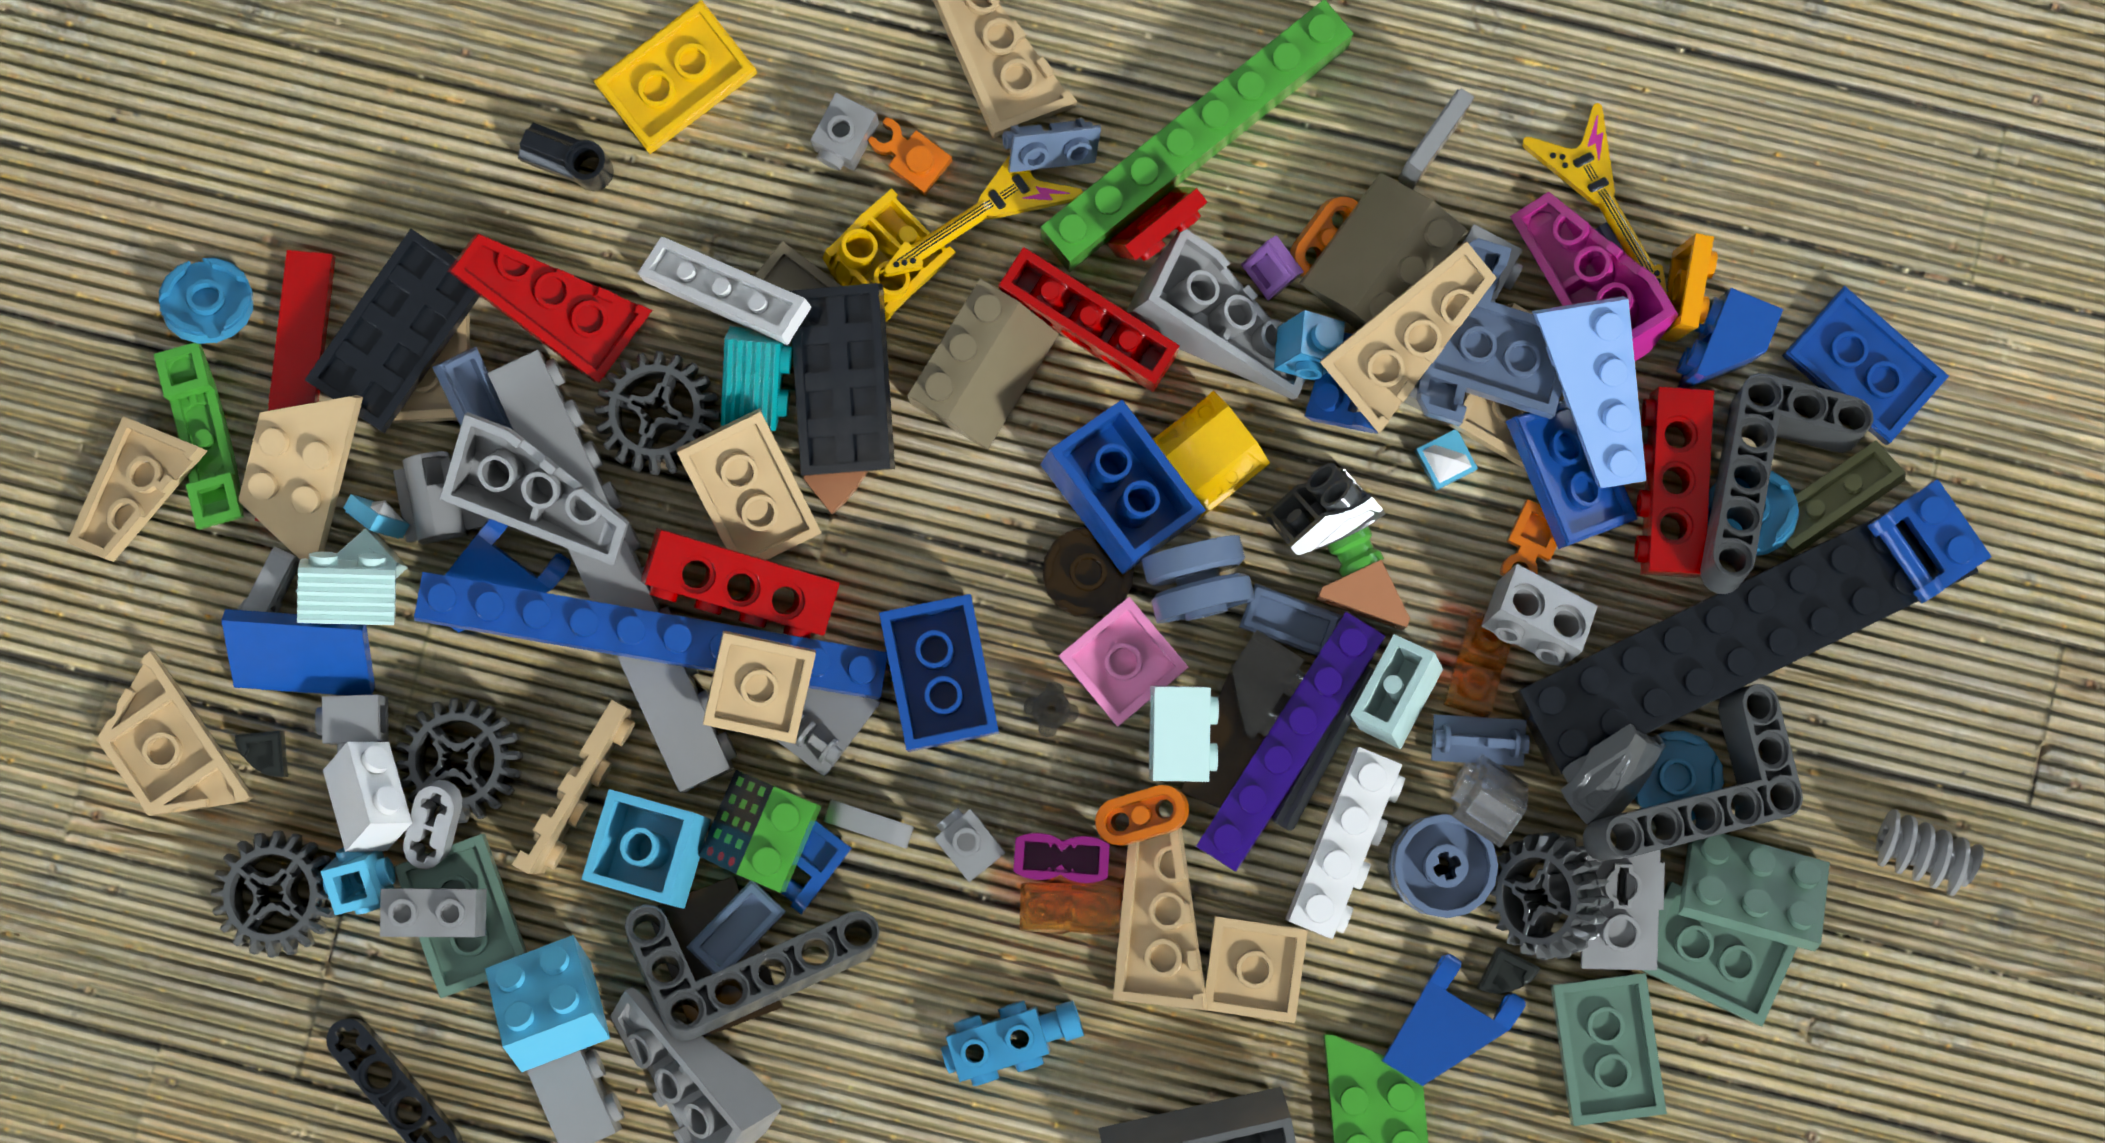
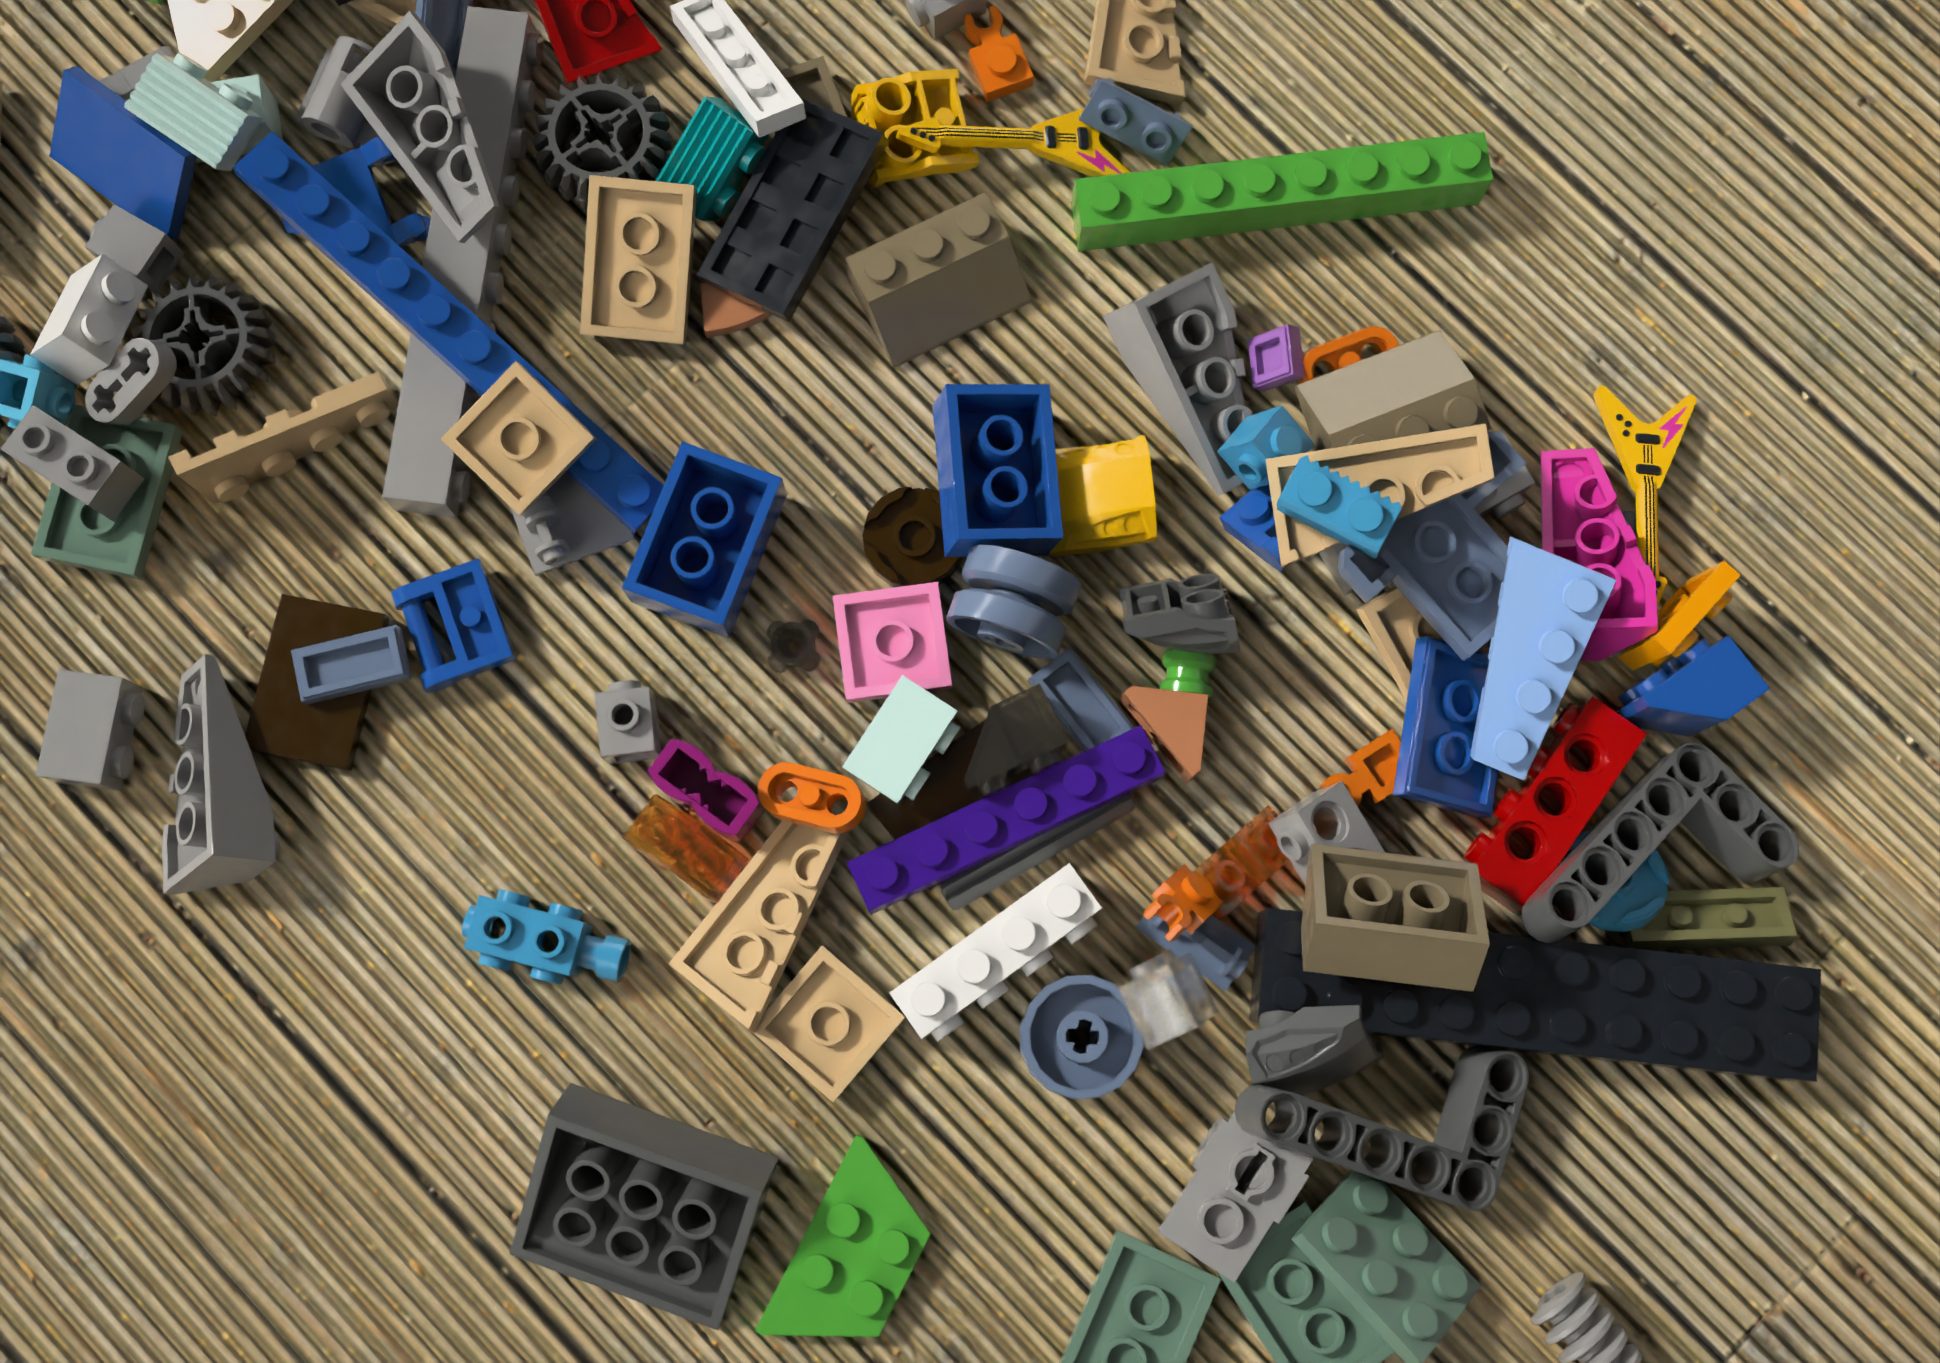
camera: 30 degrees right, 5 degrees down
(264, 752) = (37, 232): pearl dark grey tile -> none
(376, 516) = (280, 76): medium azure tile -> none
(547, 1003) = (120, 618): medium azure brick -> none
(646, 849) = (315, 532): medium azure brick -> none
(742, 975) = (326, 708): dark grey beam -> none
(760, 831) = (434, 585): bright green slope -> none
(812, 593) = (523, 265): red brick -> none
(868, 824) = (545, 644): light grey beam -> none
(1090, 320) = (1067, 298): red brick -> none
(1145, 234) = (1208, 244): red plate -> none
(1397, 691) = (1143, 834): light aqua brick -> none
(1399, 371) = (1338, 507): none -> dark azure brick
(1435, 138) = (1515, 324): light grey tile -> none
(1444, 1028) = (980, 1205): blue flag -> none
(1446, 459) = (1333, 644): tile -> none
(1457, 723) = (1183, 902): none -> orange plate
(1506, 973) = (1079, 1189): pearl dark grey tile -> none
(1568, 884) = (1184, 1132): dark grey gear -> none
(1615, 644) = (1393, 918): none -> dark tan slope
(1682, 770) = (1385, 1093): dark azure tile -> none
(1866, 358) = (1821, 795): blue tile -> none
(1941, 533) = (1801, 1015): blue plate -> none

